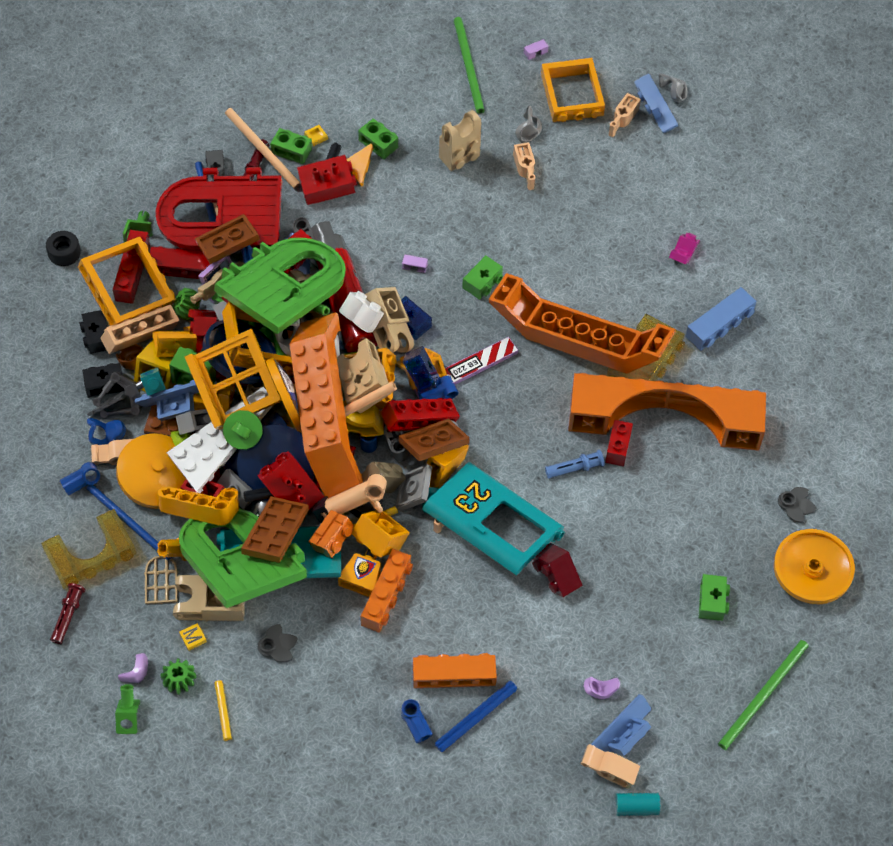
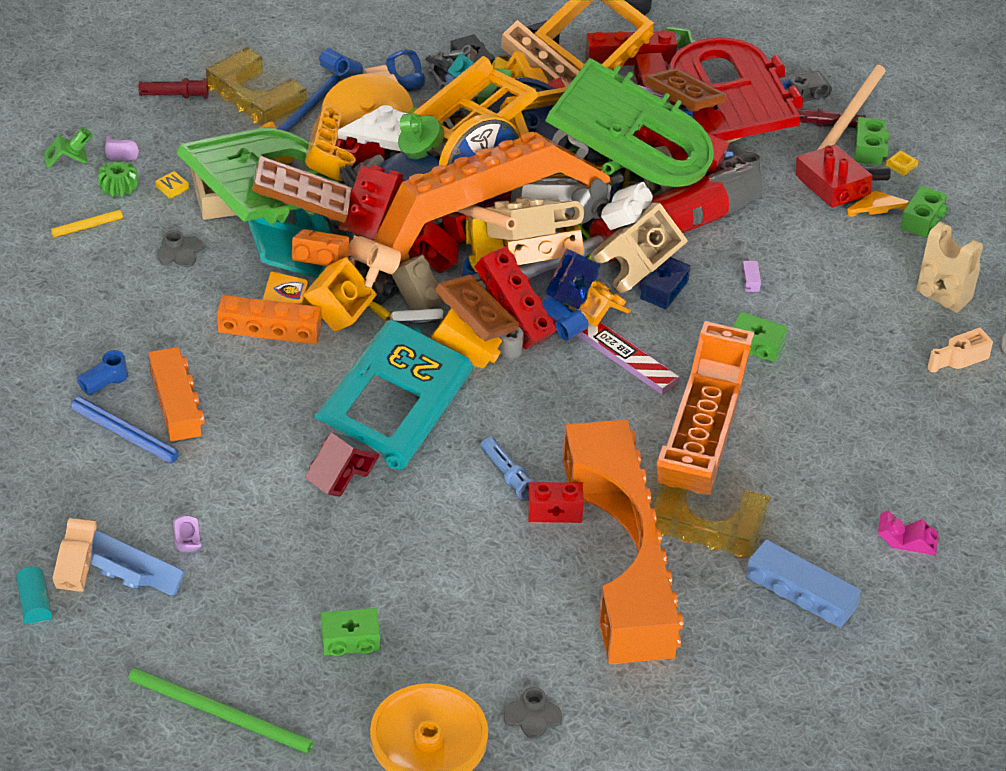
camera: 75 degrees right, 15 degrees down
(347, 334) = (592, 199): none -> dark grey plate

